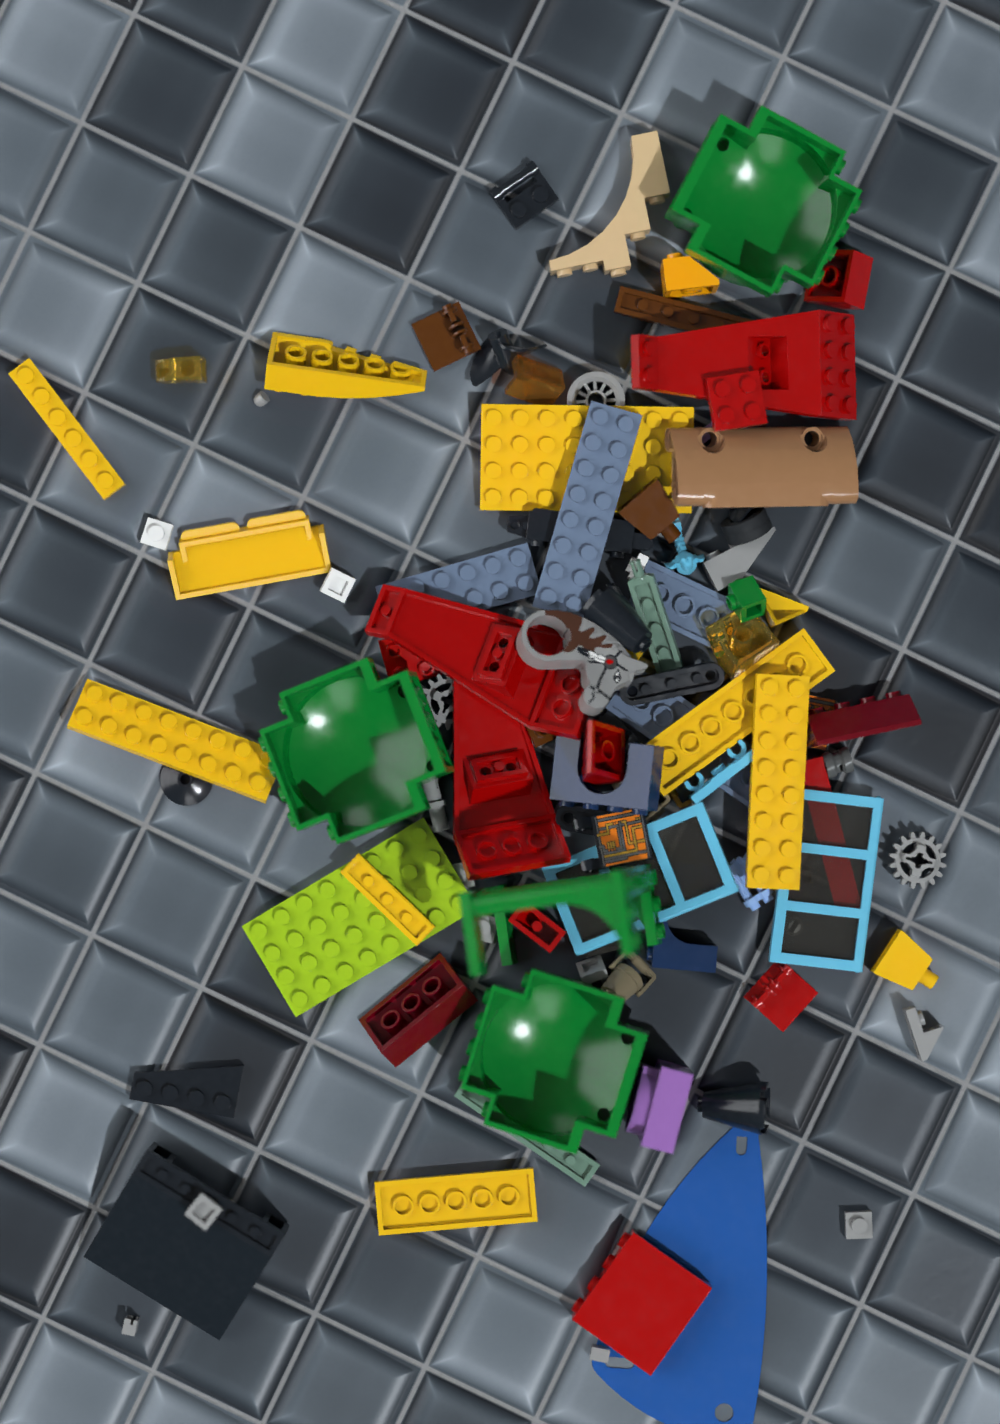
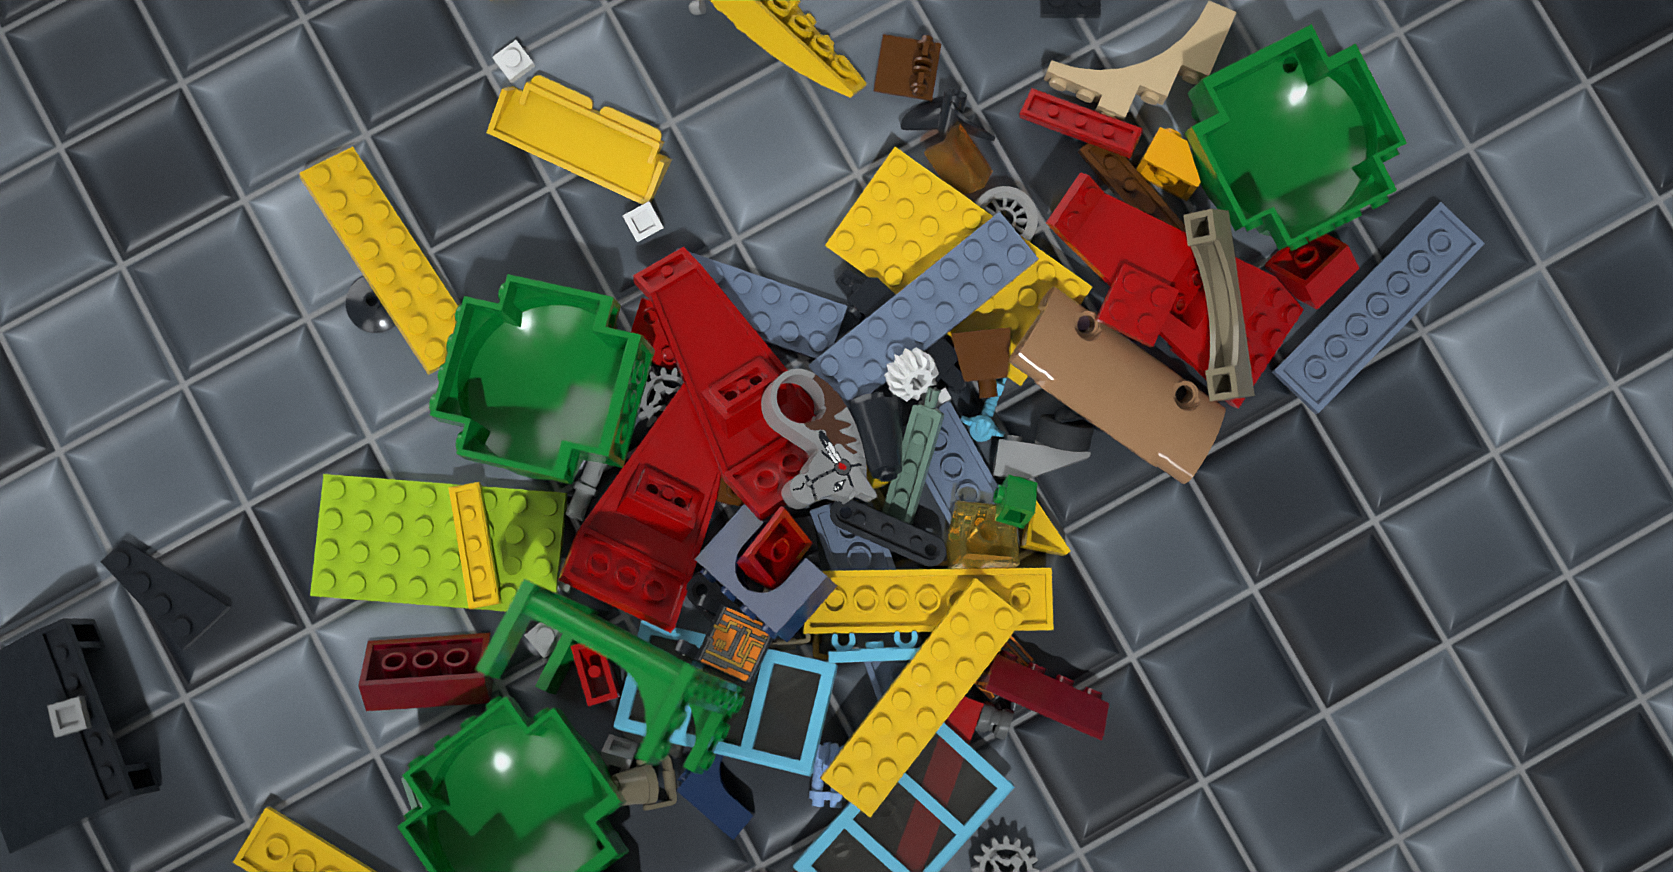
camera: 35 degrees right, 5 degrees down
(601, 291) = (1081, 123): none -> red tile
(610, 561) = (911, 374): none -> white gear
(829, 397) = (1229, 361): none -> dark tan arch
(906, 276) = (1378, 308): none -> sand blue plate

